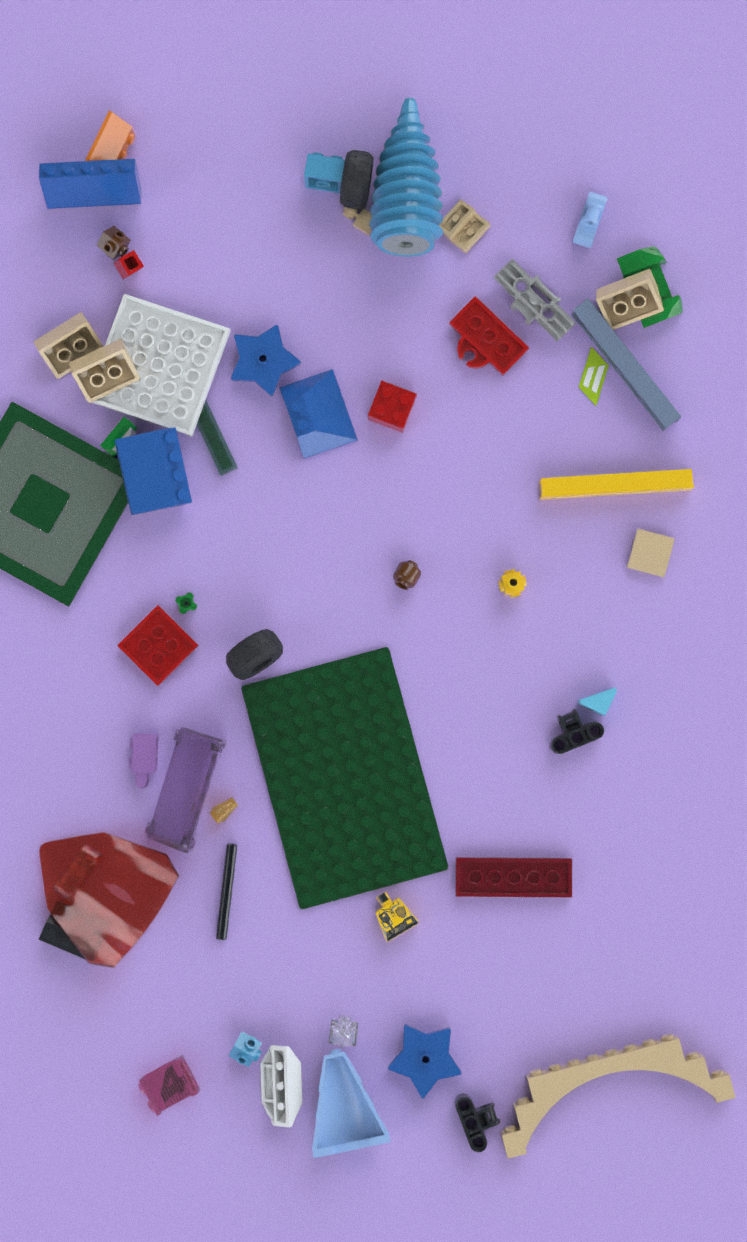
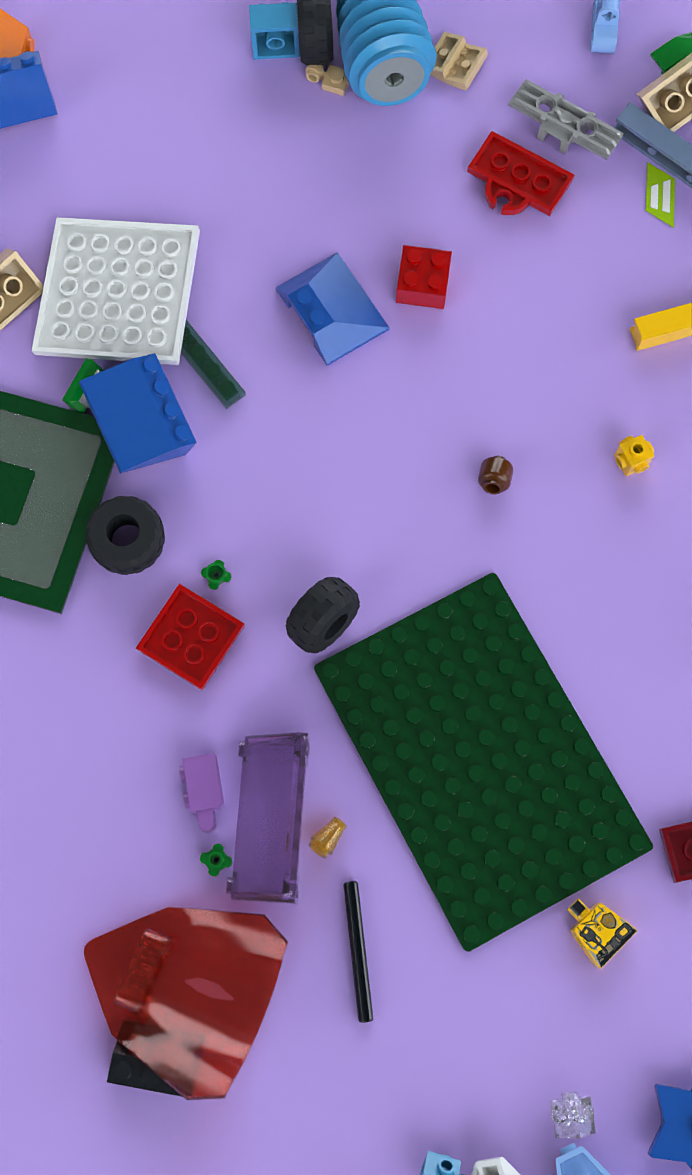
camera: 10 degrees left, 10 degrees down
(104, 371) = (50, 308): tan slope -> none
(112, 547) = (113, 515): none -> black tyre
(113, 242) = (32, 161): reddish brown brick -> none
(128, 264) = (55, 181): red brick -> none
(137, 806) = (208, 860): none -> green plate
(265, 373) = (248, 257): blue plate -> none

